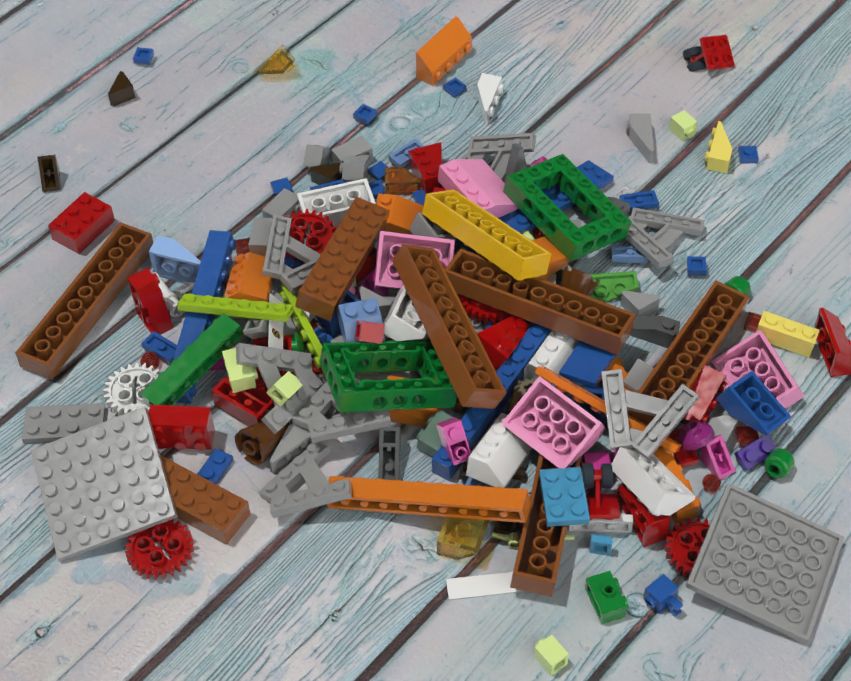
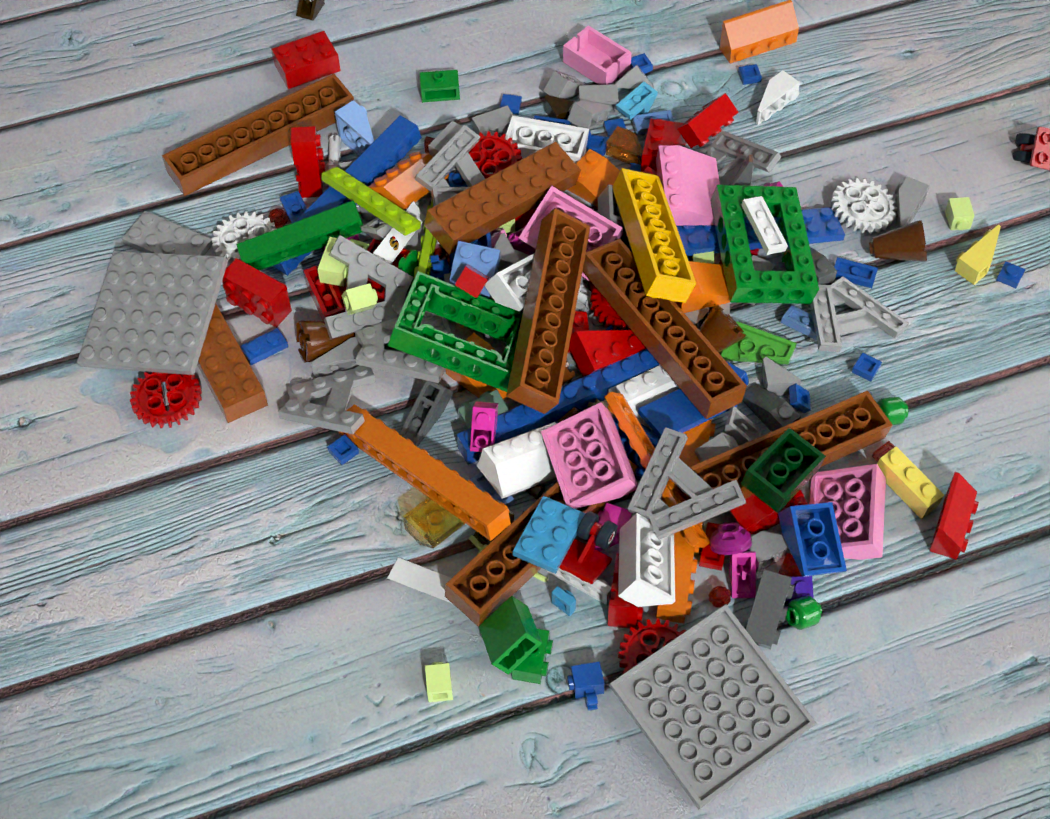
camera: 30 degrees right, 5 degrees up
(213, 197) = (439, 86): none -> green brick
(328, 121) = (597, 56): none -> bright pink piece
(342, 517) = (343, 449): none -> blue plate
(371, 126) = (633, 79): none -> light grey slope
(386, 141) = (637, 101): none -> medium azure slope
(456, 133) = (708, 121): none -> red wedge
(564, 190) = (764, 225): none -> white plate
(585, 587) = (510, 635): none -> green brick
(611, 149) = (863, 205): none -> white gear
(635, 349) = (741, 427): none -> light grey slope
(660, 164) = (901, 243): none -> reddish brown cone
(665, 309) = (799, 398): none -> blue plate
(706, 362) = (783, 470): none -> dark green brick
(755, 469) = (769, 608): none -> dark grey brick

